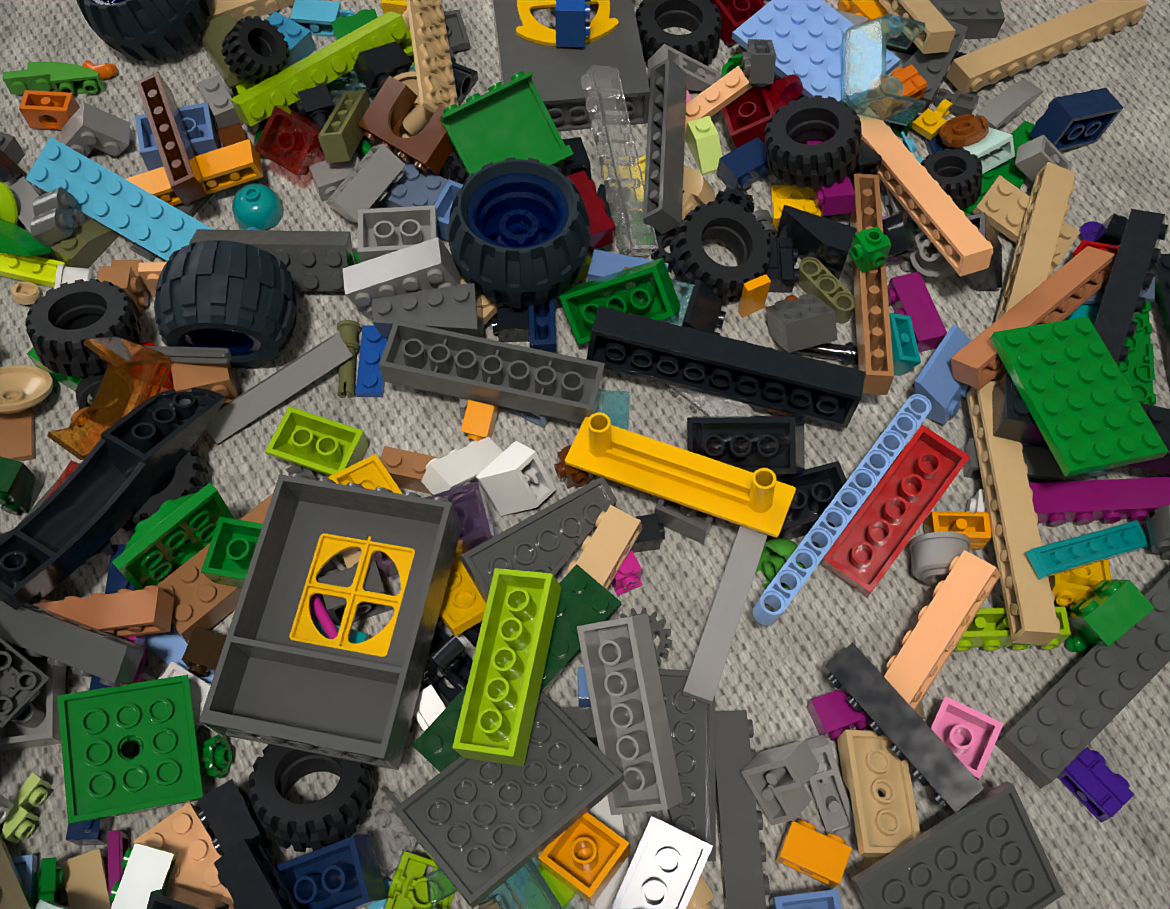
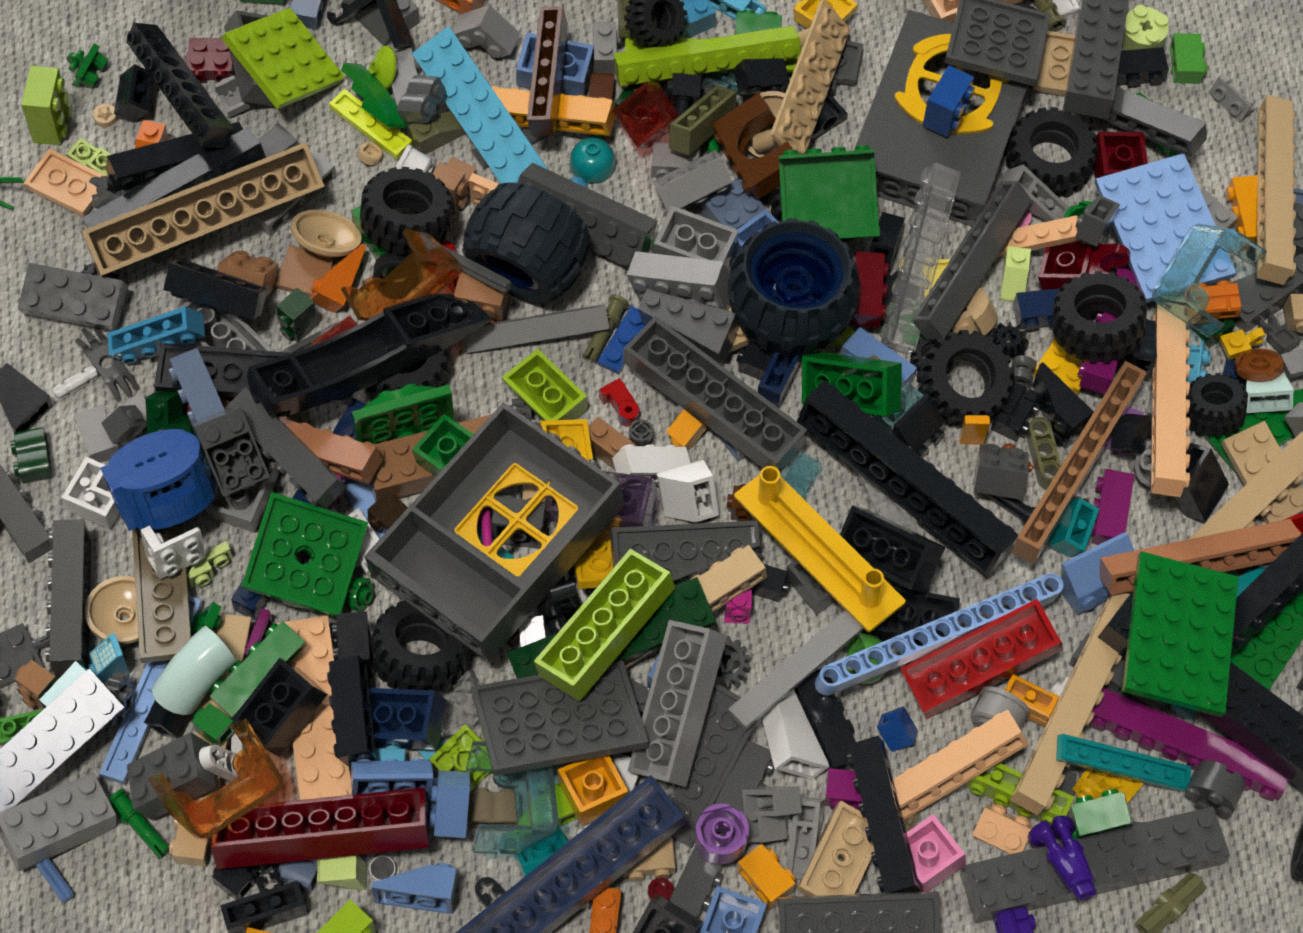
camera: 25 degrees right, 0 degrees up
(35, 445) = (328, 290): none -> orange slope
(399, 421) = (621, 401): none -> red leg
(437, 449) = (641, 438): none -> dark grey wheel
(748, 817) = (720, 848): none -> medium lavender brick
(758, 687) = (792, 739): none -> white slope
(783, 653) = (827, 721): none -> black brick
(849, 621) = (897, 729): none -> blue panel
(870, 249) = (1086, 434): green brick -> none
(1010, 673) = (1003, 829): none -> light nougat bracket
(1104, 677) = (1067, 861): none -> dark purple piece

